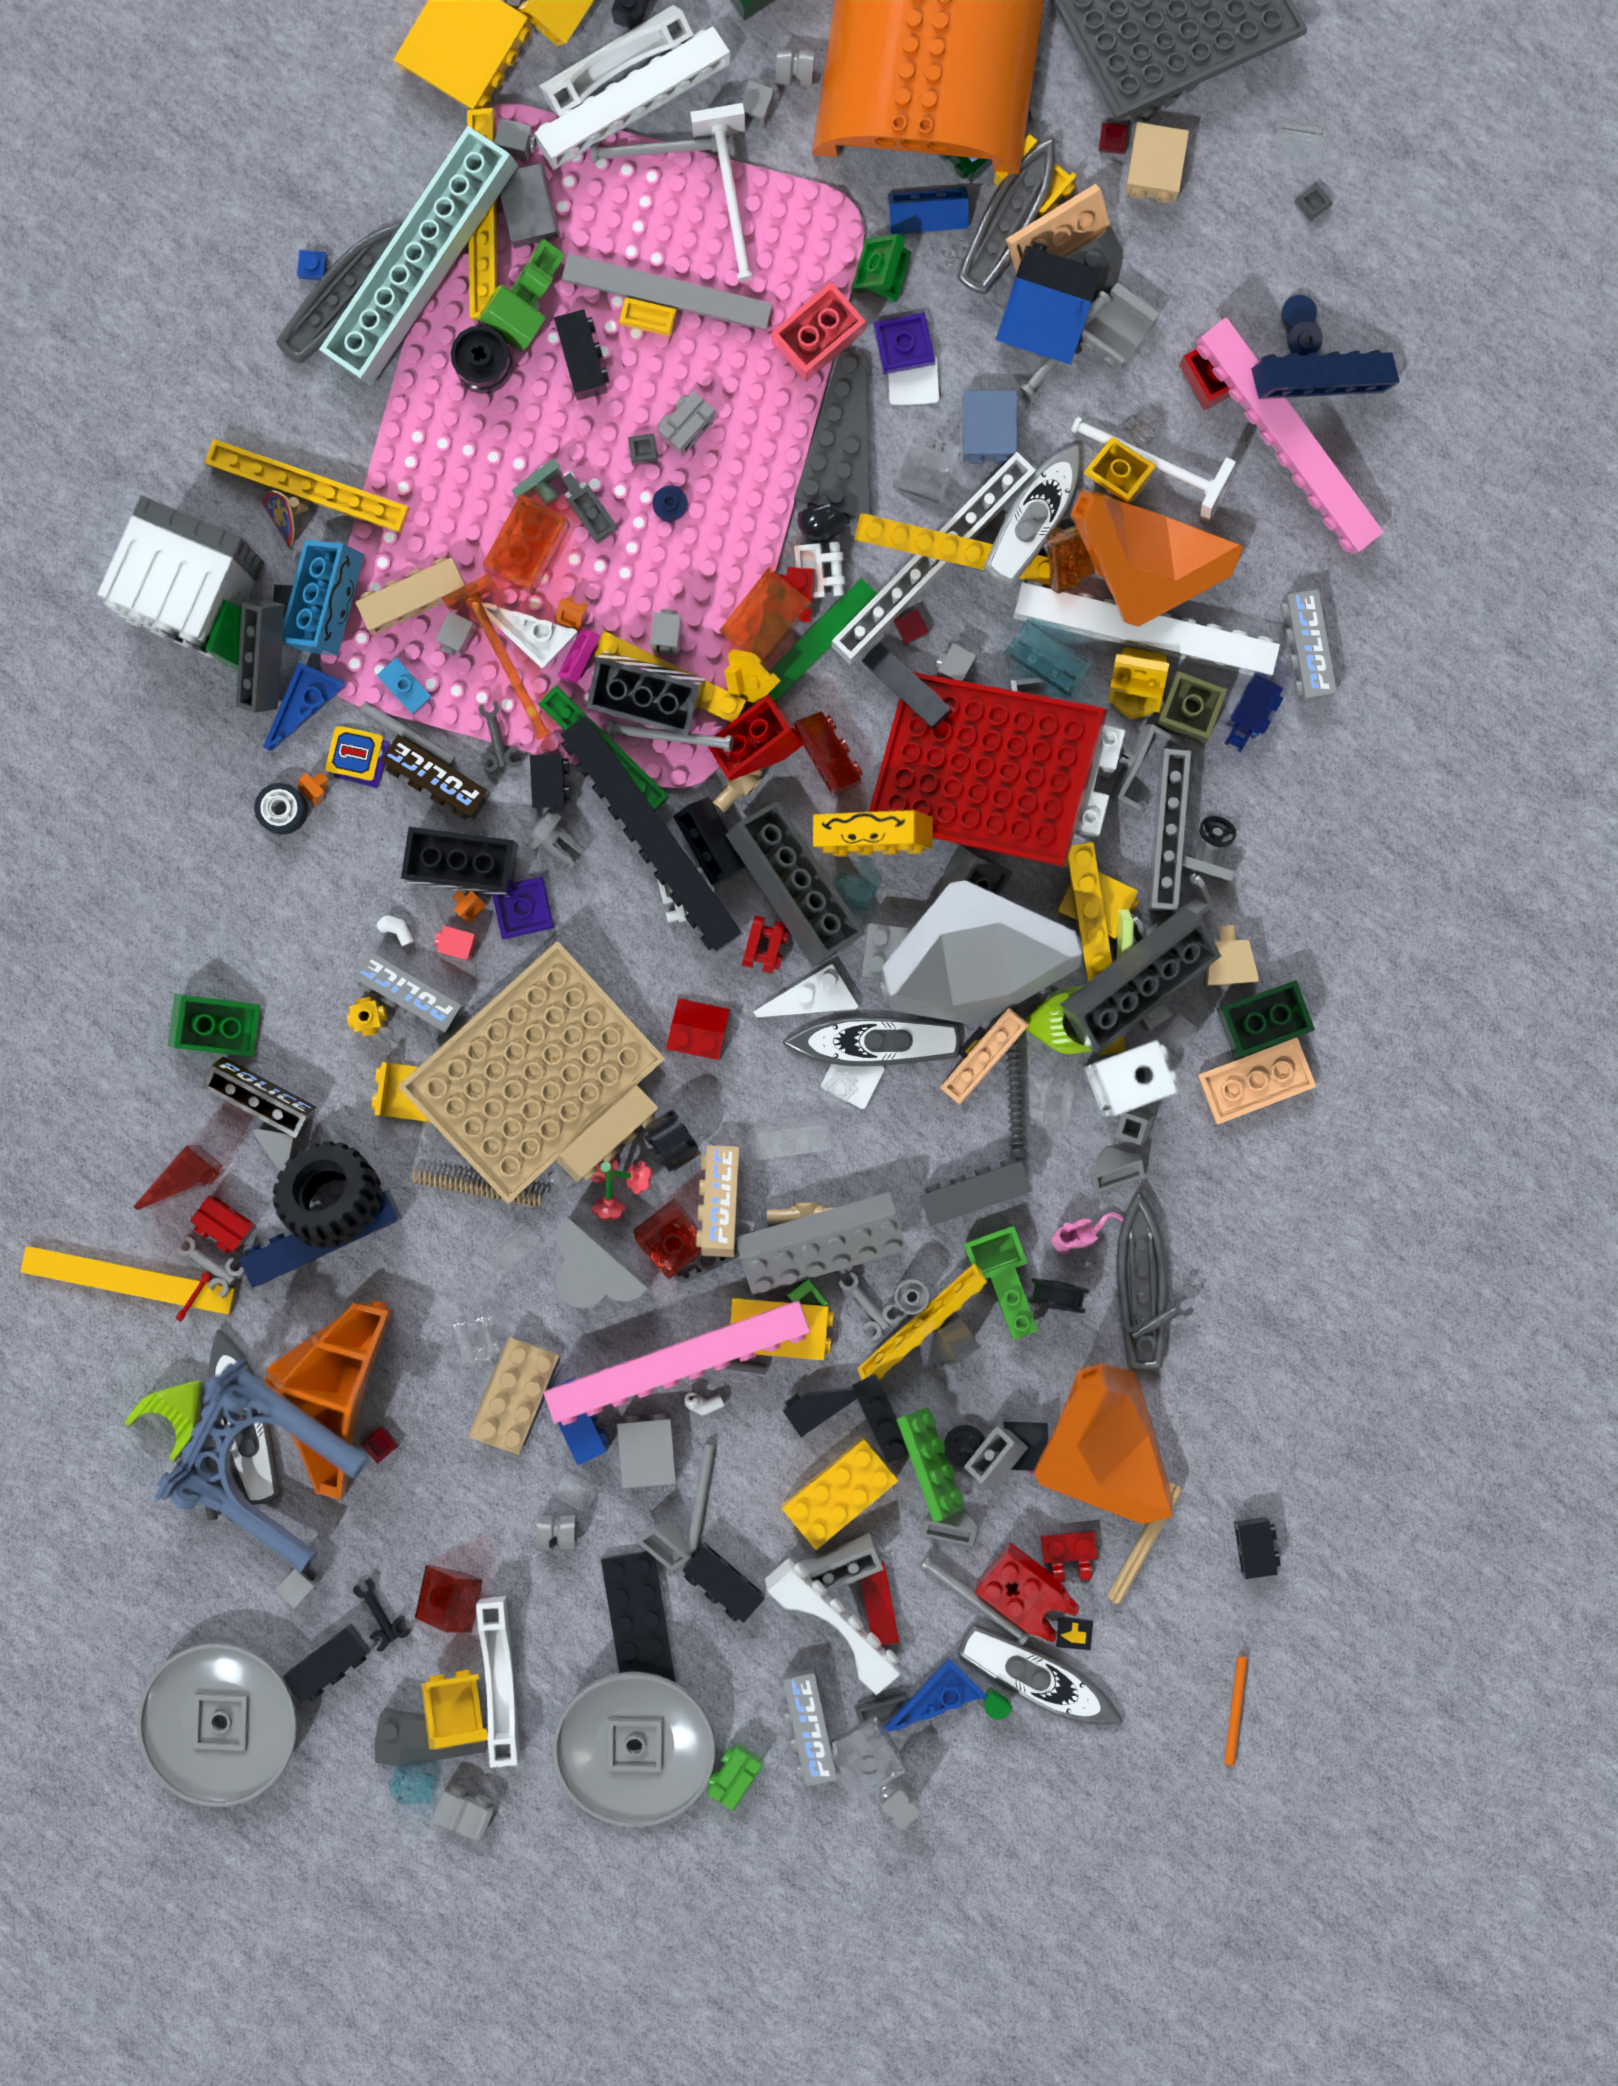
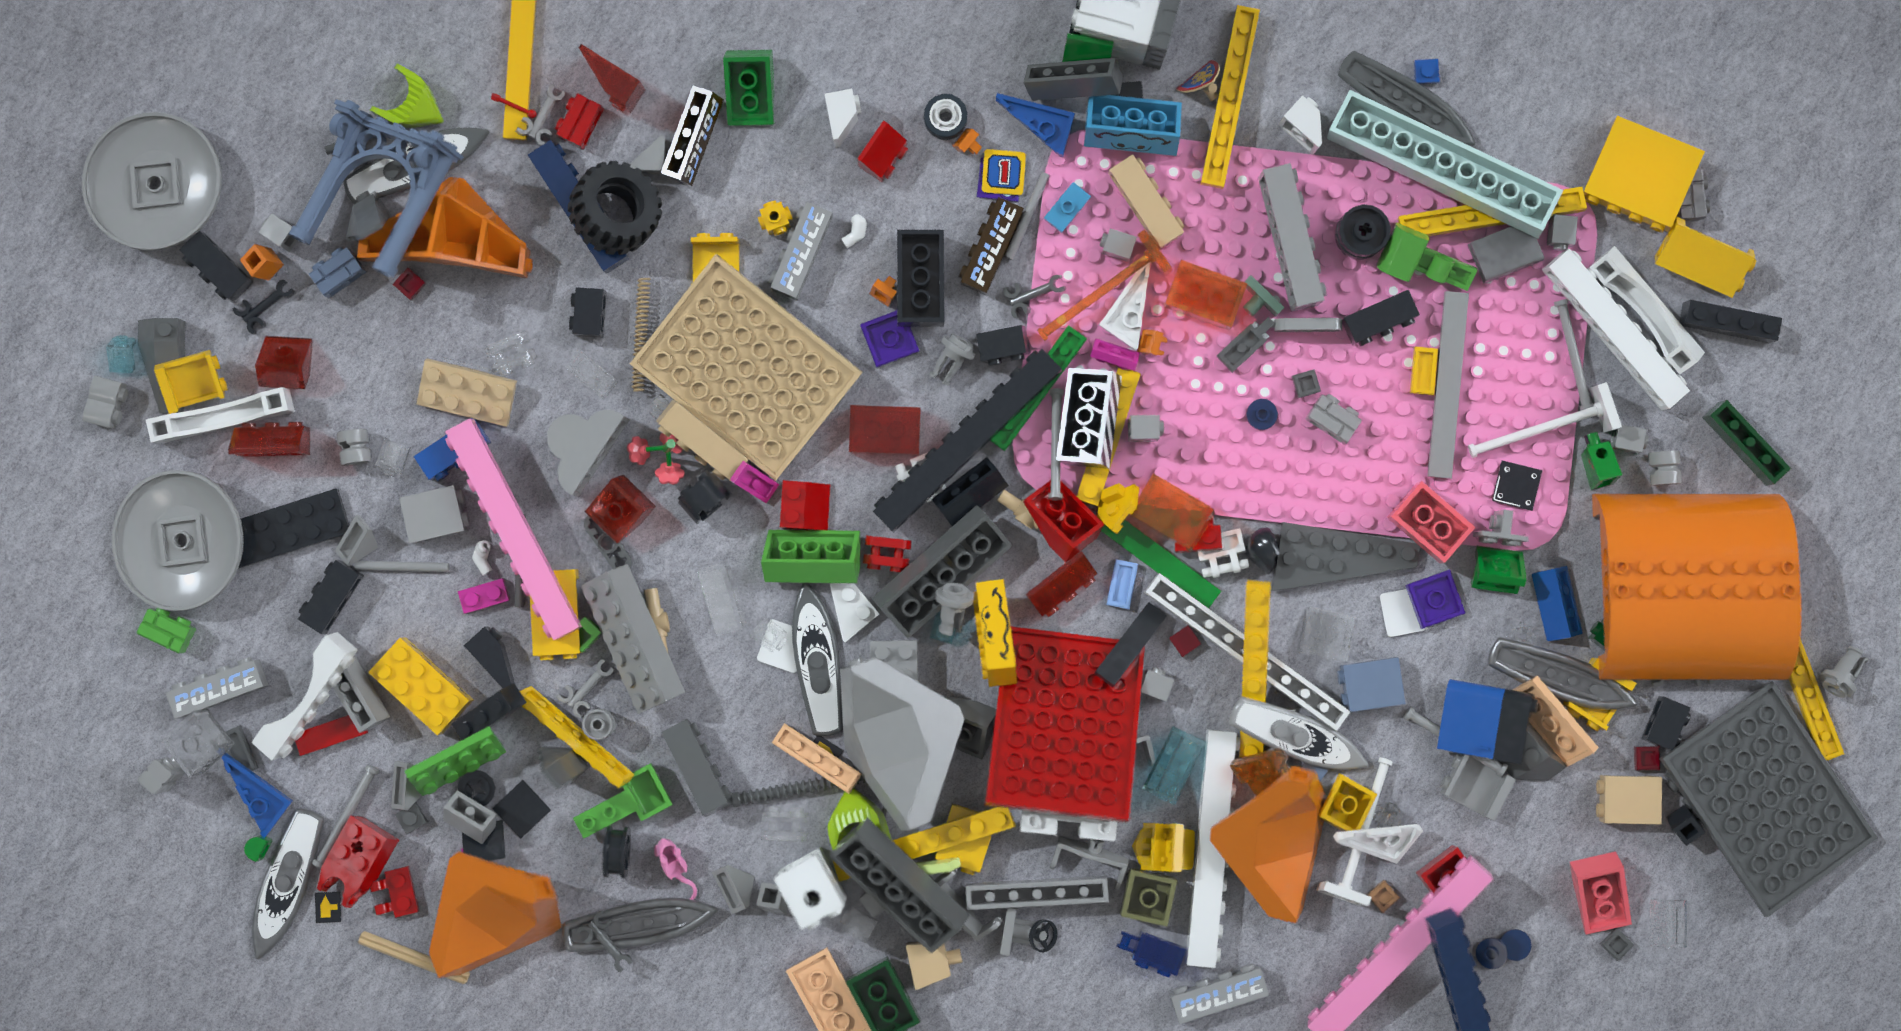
camera: 85 degrees right, 0 degrees up
(258, 923) = (842, 113): none -> white slope
(295, 1481) = (366, 216): none -> dark grey wedge
(310, 884) = (883, 152): none -> red slope
(329, 1610) = (261, 262): none -> orange brick
(351, 406) = (1304, 124): none -> white slope
(353, 1525) = (337, 271): none -> sand blue brick
(442, 1243) = (588, 312): none -> black brick
(456, 943) = (850, 285): coral brick -> none
(475, 438) = (1291, 237): none -> light grey brick
(535, 1627) = (270, 440): none -> clear red slope
(577, 436) = (1308, 324): none -> light grey beam
(626, 926) = (884, 430): none -> clear red brick
(663, 1081) = (754, 482): none -> dark pink plate
(720, 1201) = (657, 546): tan brick -> none
(747, 1408) = (483, 596): none -> dark pink plate
(756, 1029) = (811, 556): none -> bright green slope
(778, 137) = (1602, 470): none -> green torso
(790, 234) = (1517, 485): none -> black sticker
(830, 873) = (954, 600): none -> light grey piece
(836, 254) = (1501, 530): none -> light grey bracket
(837, 687) = (1122, 584): none -> light blue tile
(988, 1524) = (411, 818): none -> dark grey plate
(994, 1398) = (521, 809): none -> black sticker
(1078, 110) = (1666, 723): none -> black brick
(1167, 437) = (1383, 842): none -> white wing
(1193, 104) = (1685, 825): none -> black brick
(1225, 447) = (1383, 896): none -> medium nougat tile
(1254, 209) = (1601, 892): none -> coral slope

